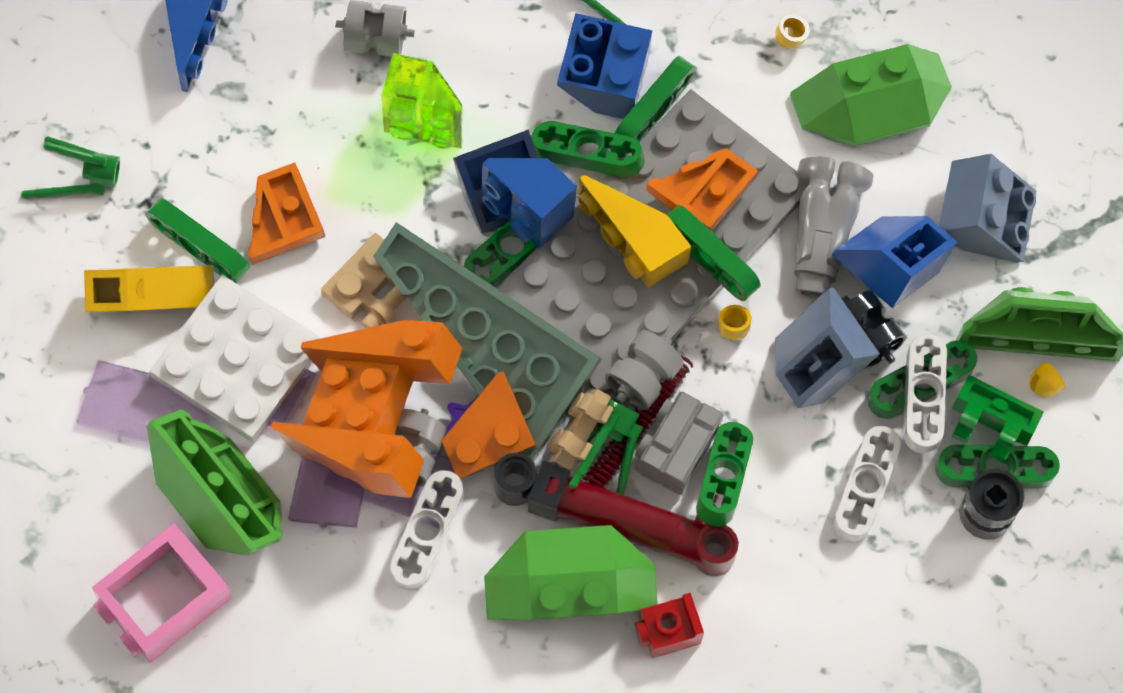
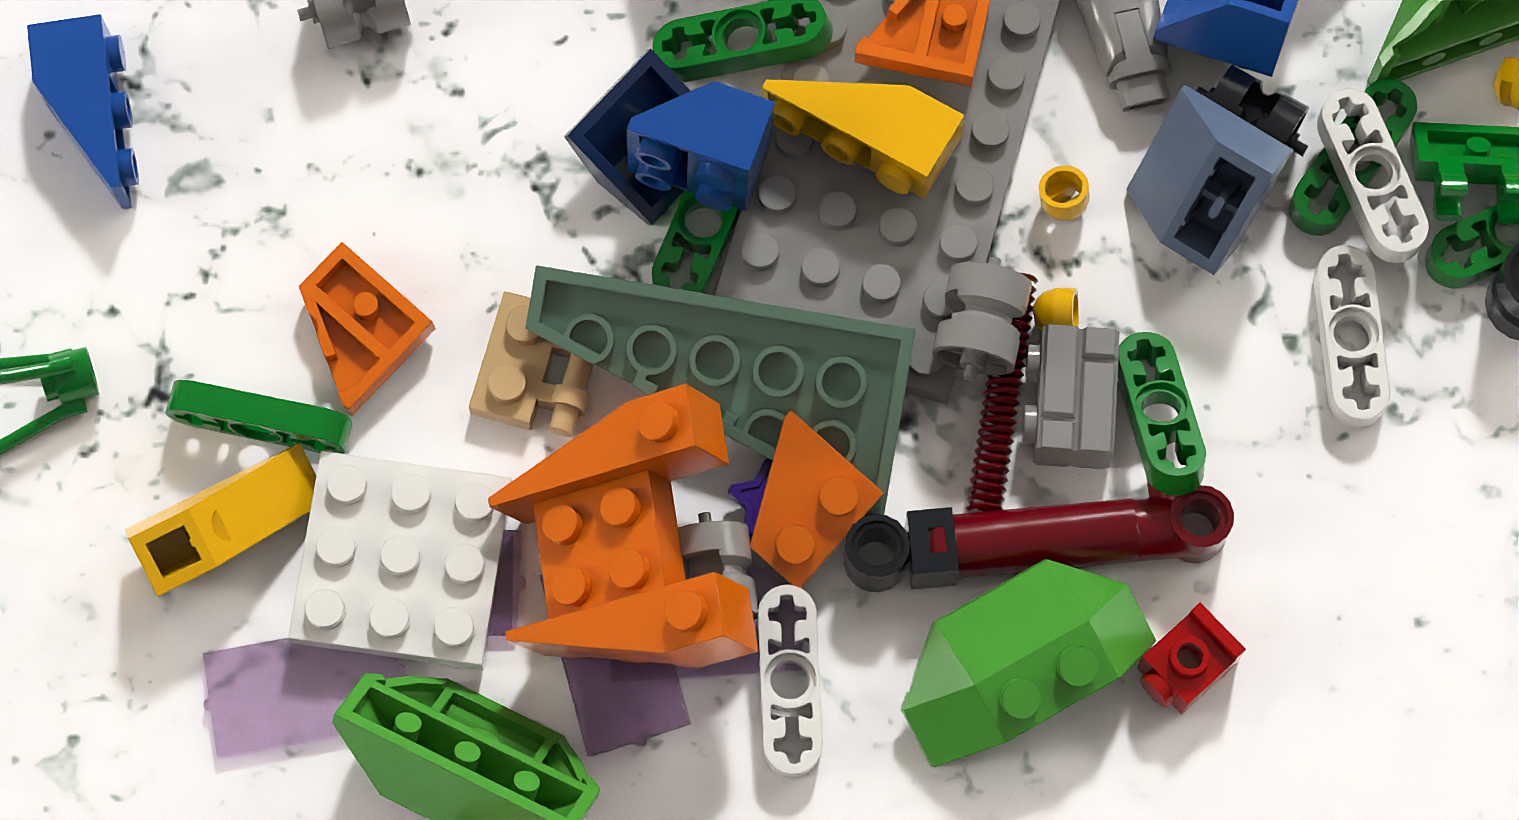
camera: 20 degrees left, 5 degrees up
(421, 104) = (483, 78): clear neon green slope -> none
(571, 443) = (929, 465): tan plate -> none
(620, 423) = (980, 410): green plant -> none
(697, 387) = (1057, 307): none -> yellow hinge
(715, 255) = (999, 112): green beam -> none

